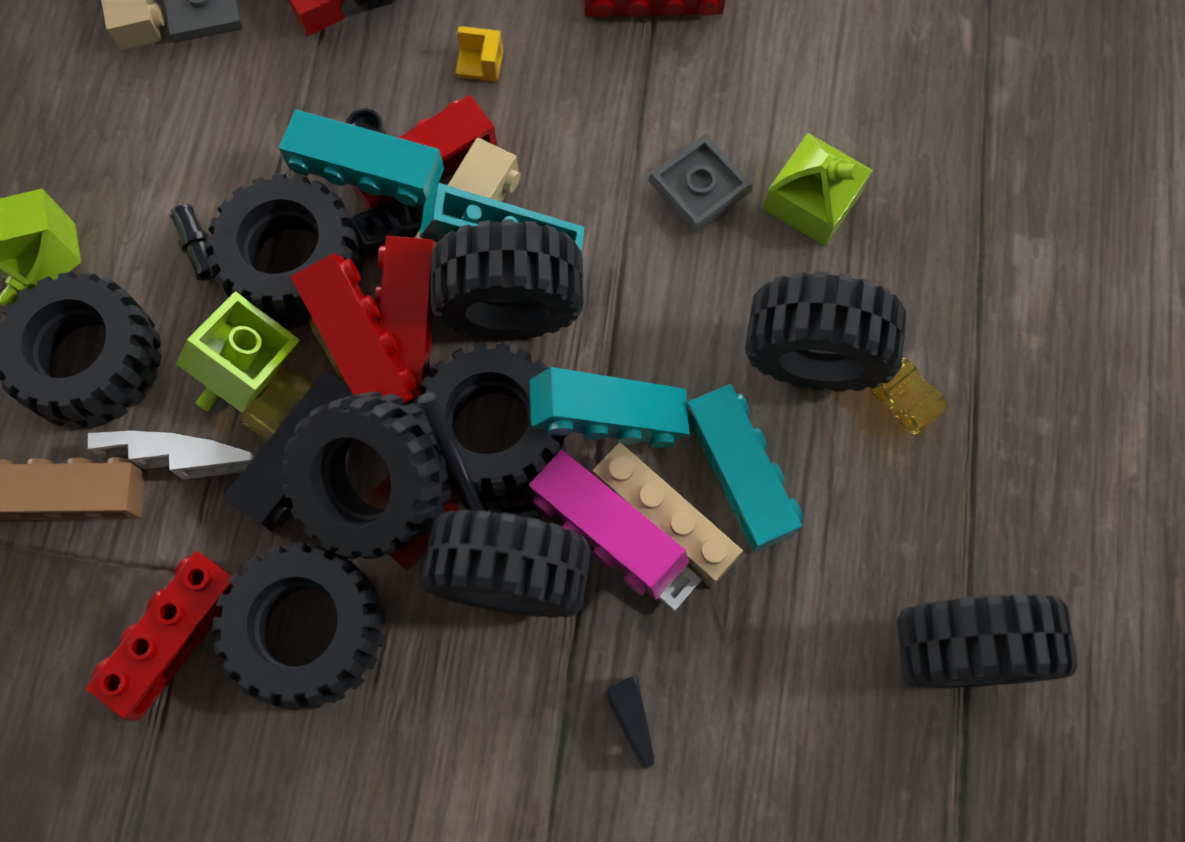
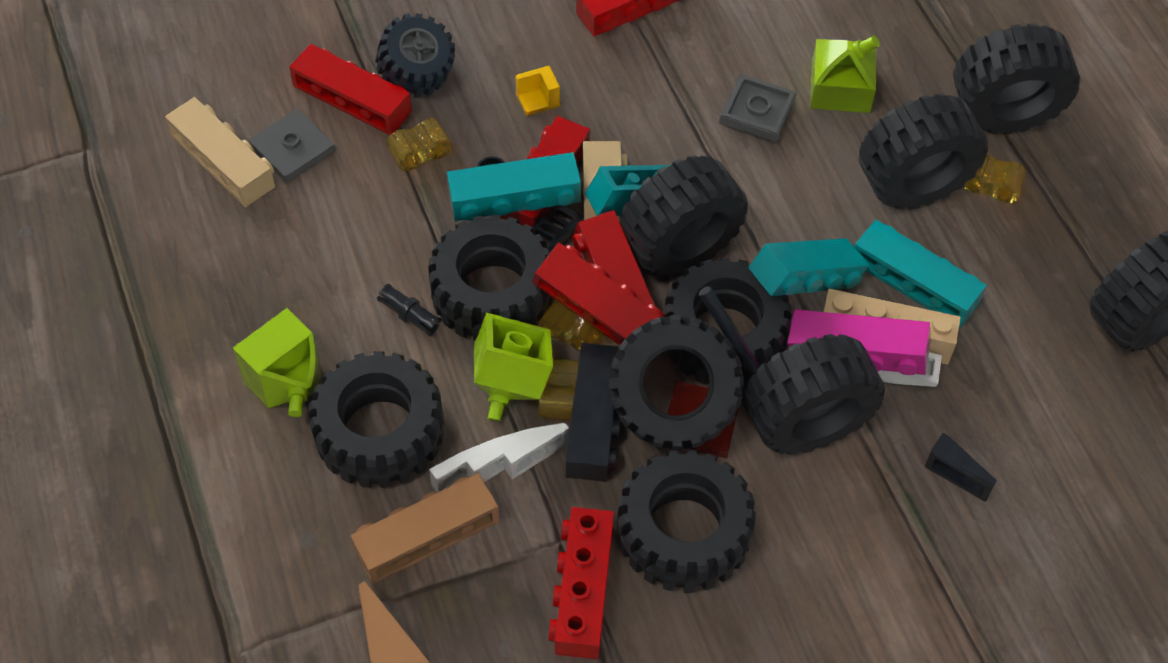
camera: 30 degrees left, 15 degrees down
(319, 60) = (418, 144): none -> clear yellow axle
(1000, 293) = (1017, 78): none -> black tyre

